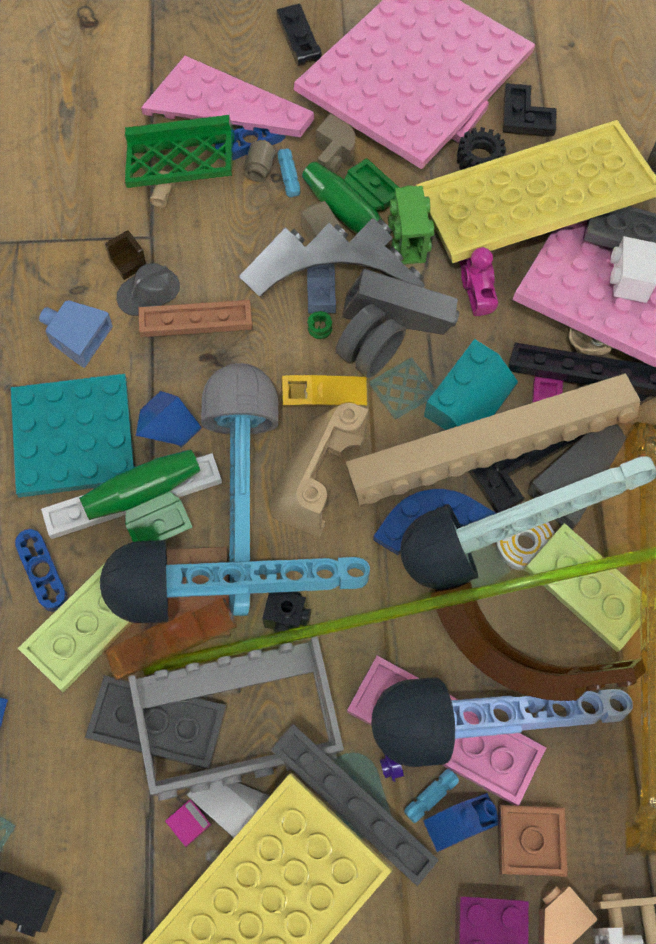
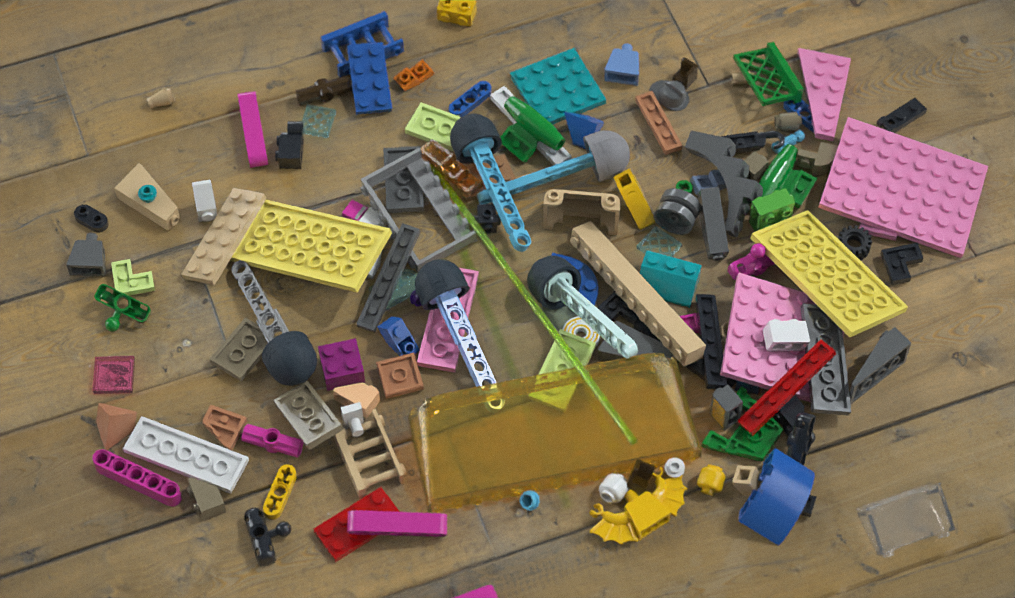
camera: 75 degrees right, 10 degrees down
(275, 212) = (754, 141): none -> black plate
(431, 795) = (410, 322): medium azure axle -> none
(518, 671) = (498, 331): reddish brown arch -> none

